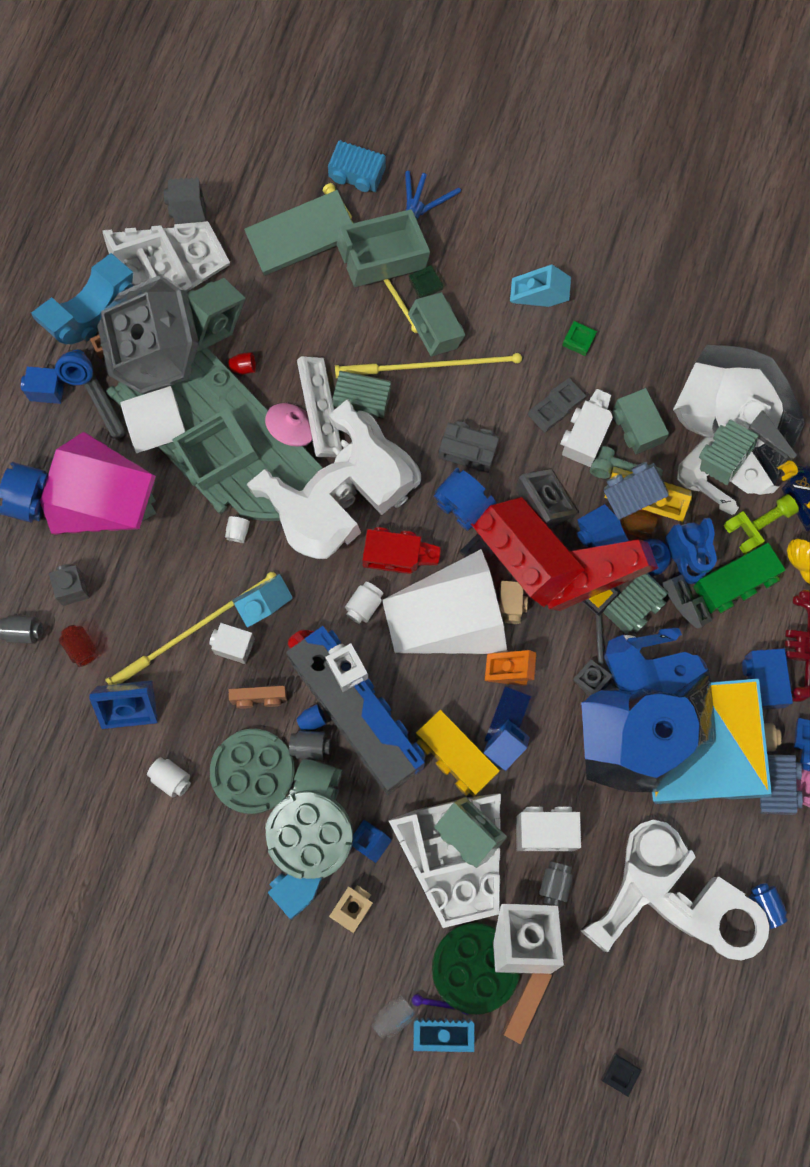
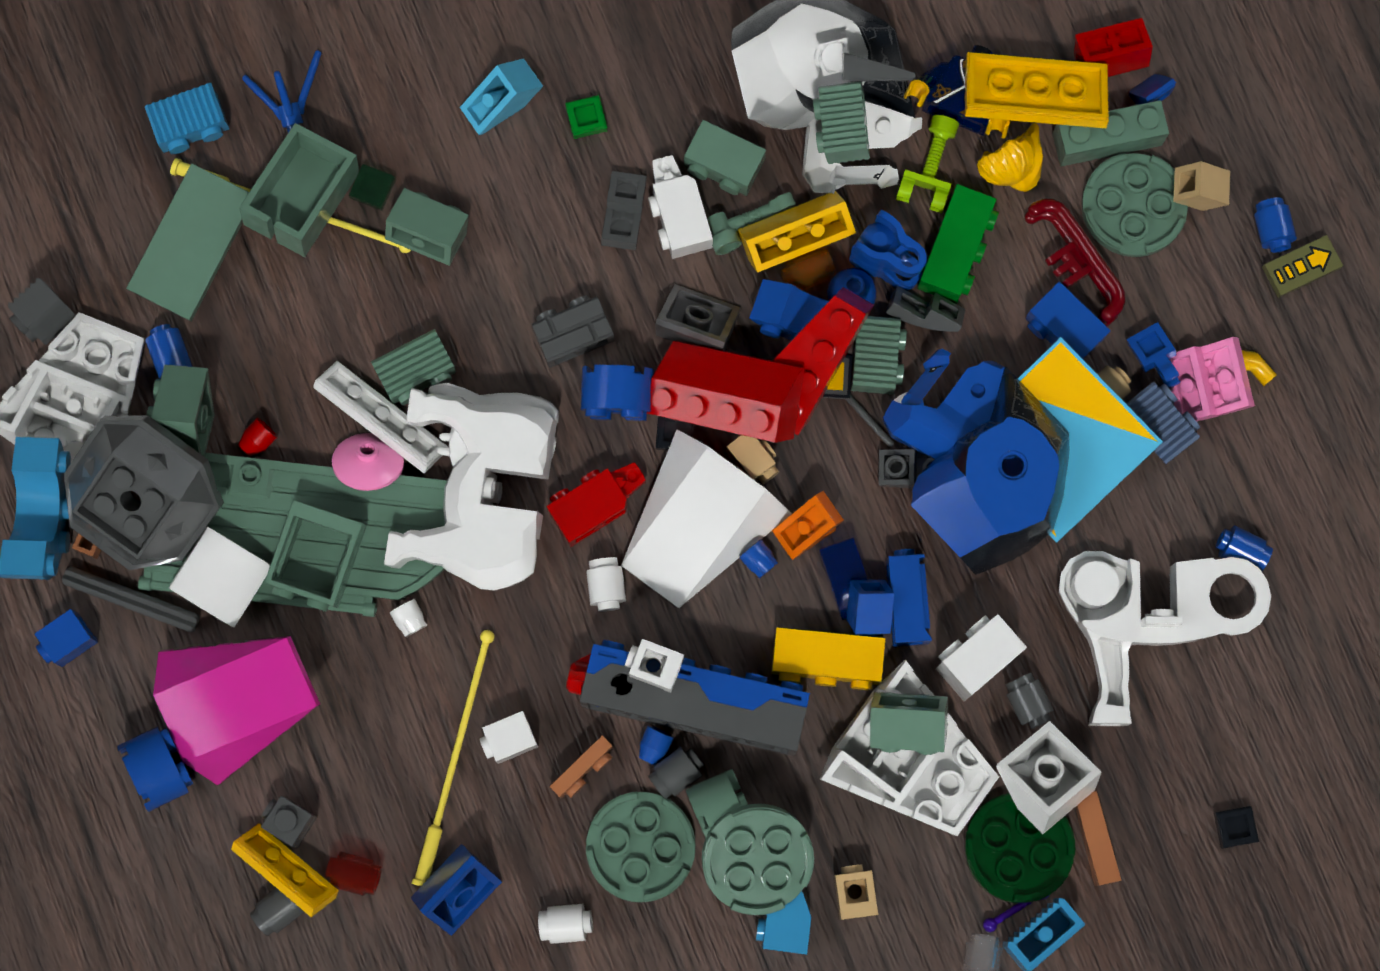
camera: 40 degrees left, 5 degrees up
(41, 611) = (285, 870): none -> yellow tile
(74, 368) = (87, 592): blue brick -> none
(238, 275) = (167, 348): none -> blue brick
(262, 600) = (501, 669): medium azure slope -> none
(368, 369) = (401, 327): light yellow piece -> none
(370, 841) = (816, 813): blue slope -> none
(465, 663) = (759, 559): none -> blue hose
(534, 760) = (910, 602): none -> blue window
(635, 490) = (785, 242): sand blue brick -> none

